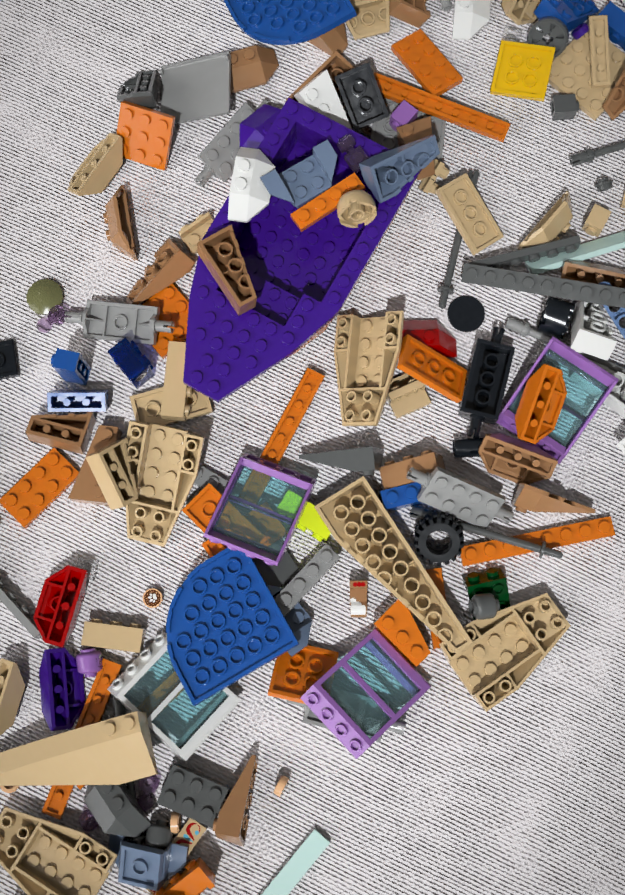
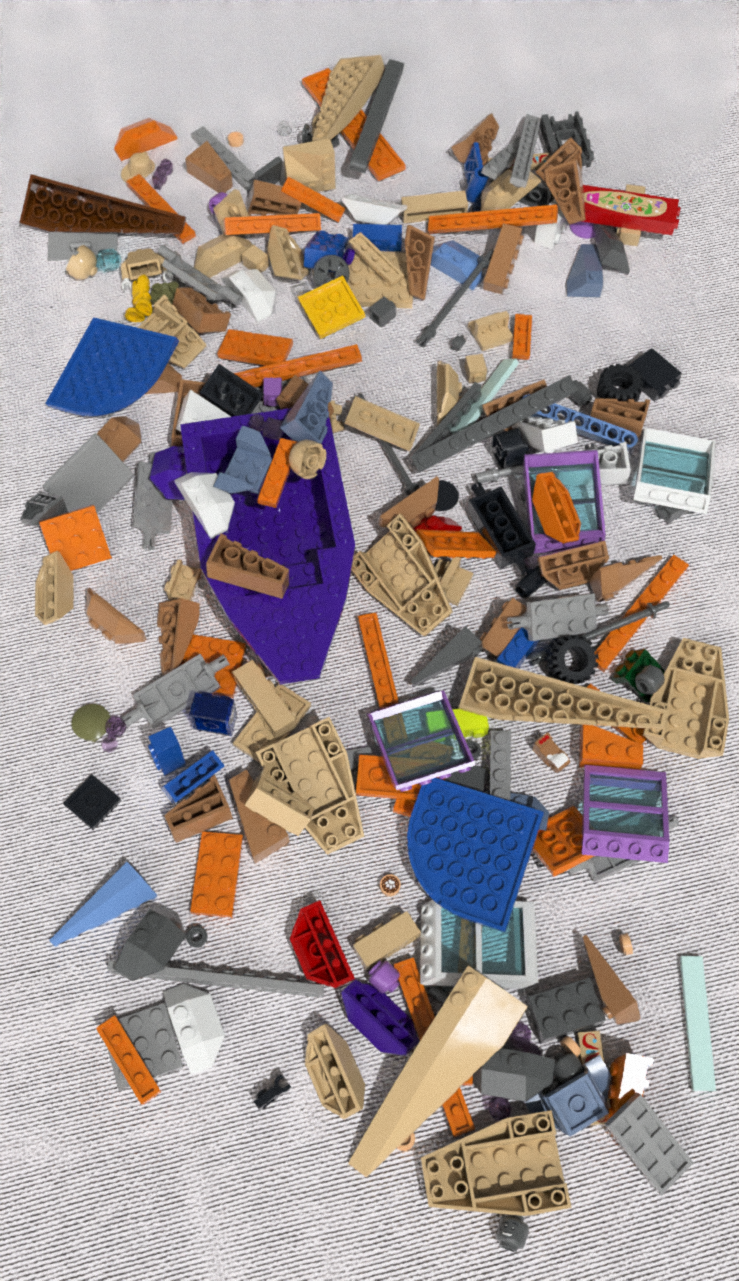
camera: 45 degrees left, 15 degrees down
(305, 540) = (476, 747): none -> dark grey plate
(427, 311) = (415, 506): none -> medium nougat wedge

